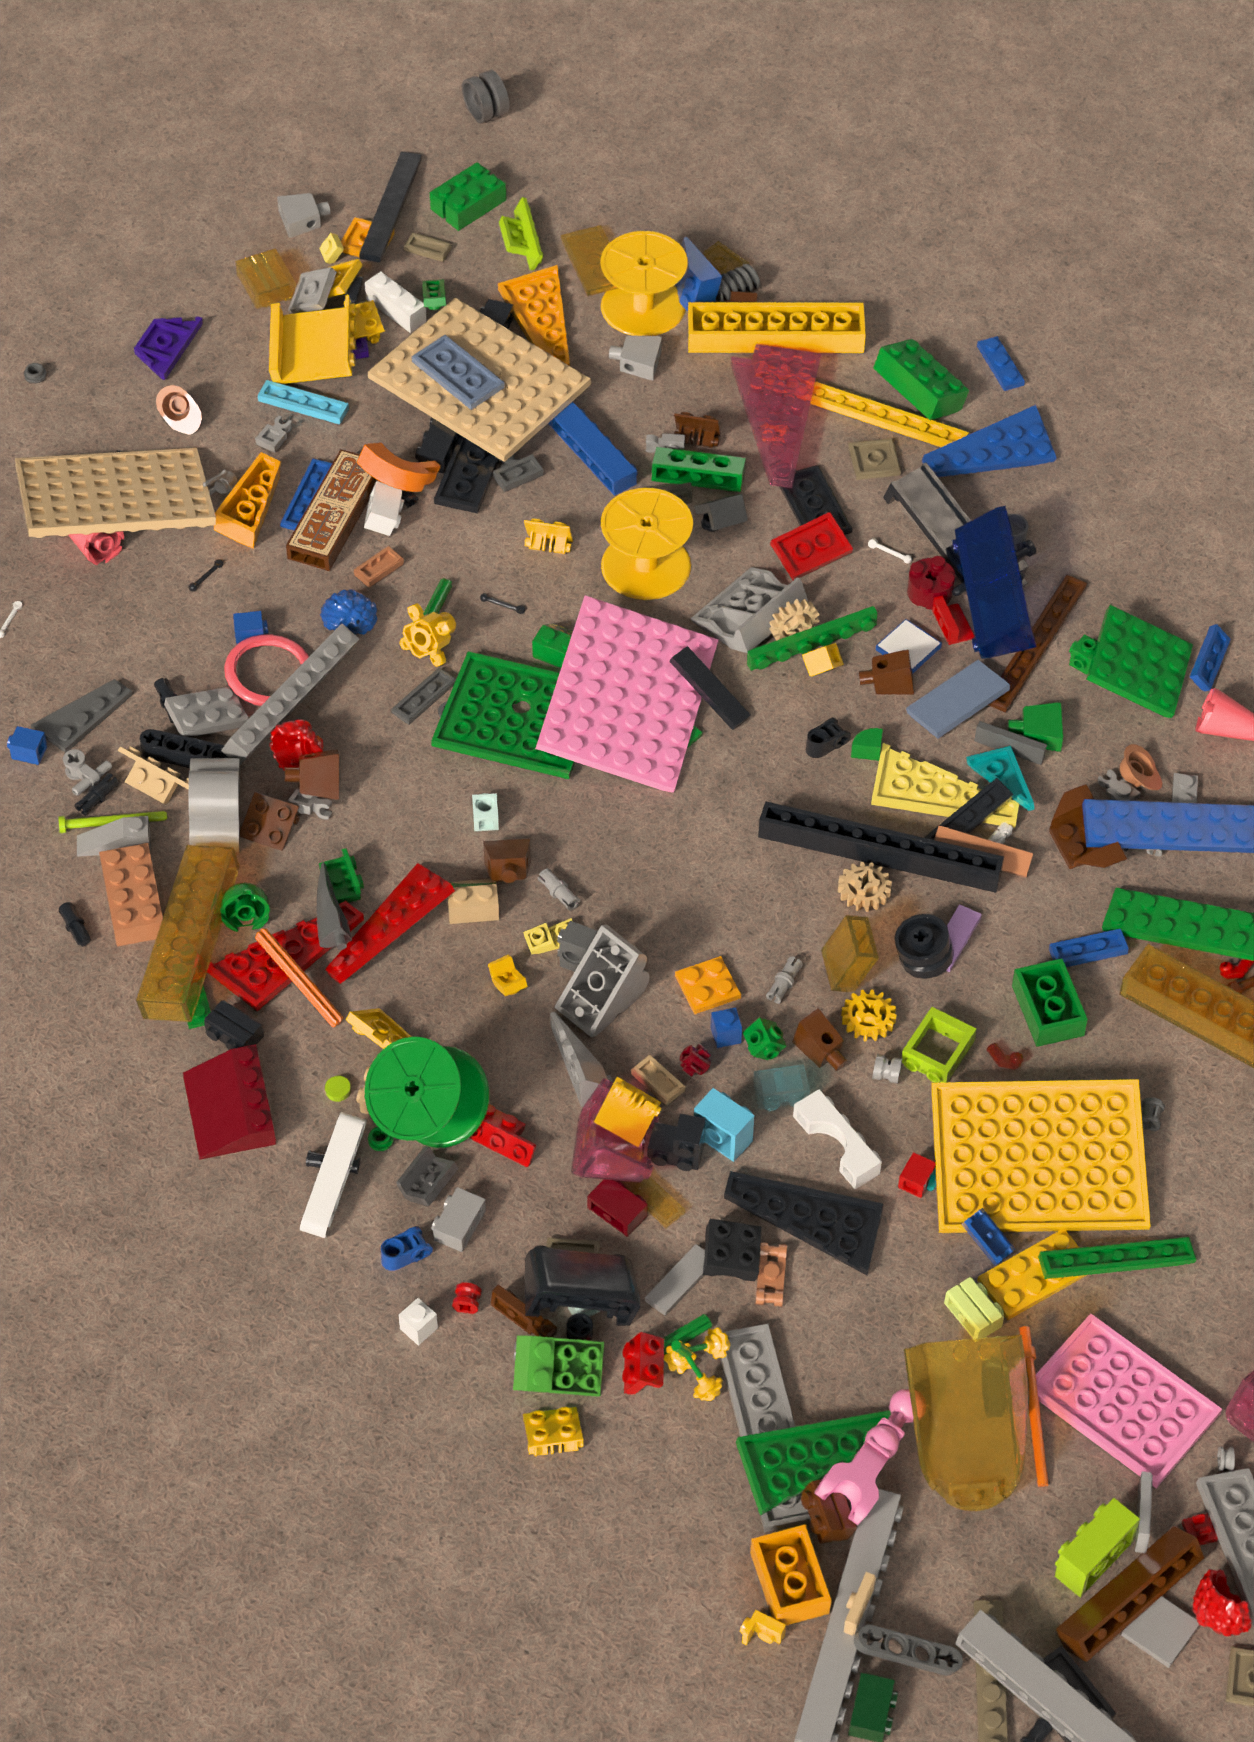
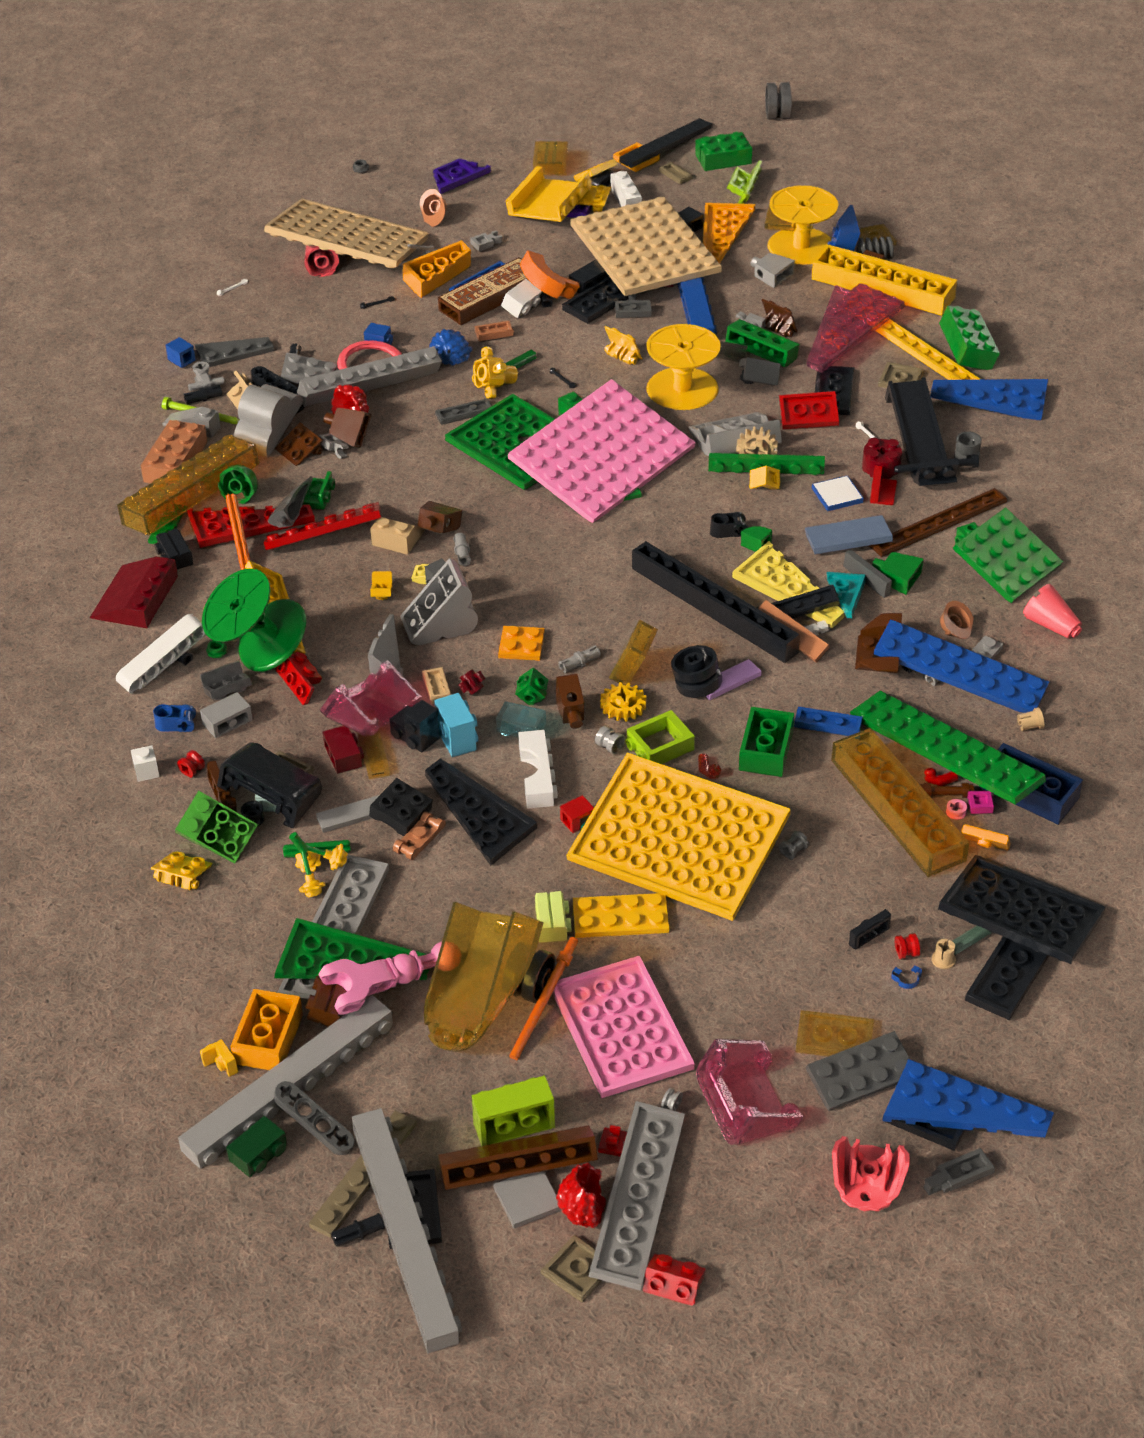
camera: 30 degrees right, 10 degrees down
(74, 924) = (126, 458): black axle -> none
(301, 213) = (603, 131): light grey torso -> none
(303, 402) = (520, 229): medium azure plate -> none
(312, 290) = (571, 172): light grey plate -> none
(331, 248) = (607, 153): light yellow plate -> none
(434, 294) = (652, 193): green plate -> none
(458, 372) = (629, 234): sand blue tile -> none
(485, 812) = (447, 487): light aqua brick -> none
(627, 1112) = (390, 688): yellow hinge -> none
(643, 1363) = (278, 852): red bracket -> none
(710, 688) = (664, 466): black tile -> none
(726, 1027) = (509, 669): blue brick -> none
(858, 1602) = (296, 1064): tan plate -> none
(875, 892) = (684, 623): tan gear -> none
(890, 674) = (806, 501): reddish brown torso -> none
(988, 1236) = (597, 871): blue hinge -> none
(994, 585) = (923, 468): clear blue windscreen -> none
(1000, 363) = (1042, 350): blue plate -> none
(1116, 1257) = (690, 927): green tile -> none
(1118, 790) = (931, 628): light grey plate -> none
(1143, 1512) = (571, 1104): light grey tile -> none
(1210, 658) = (1071, 572): blue plate -> none

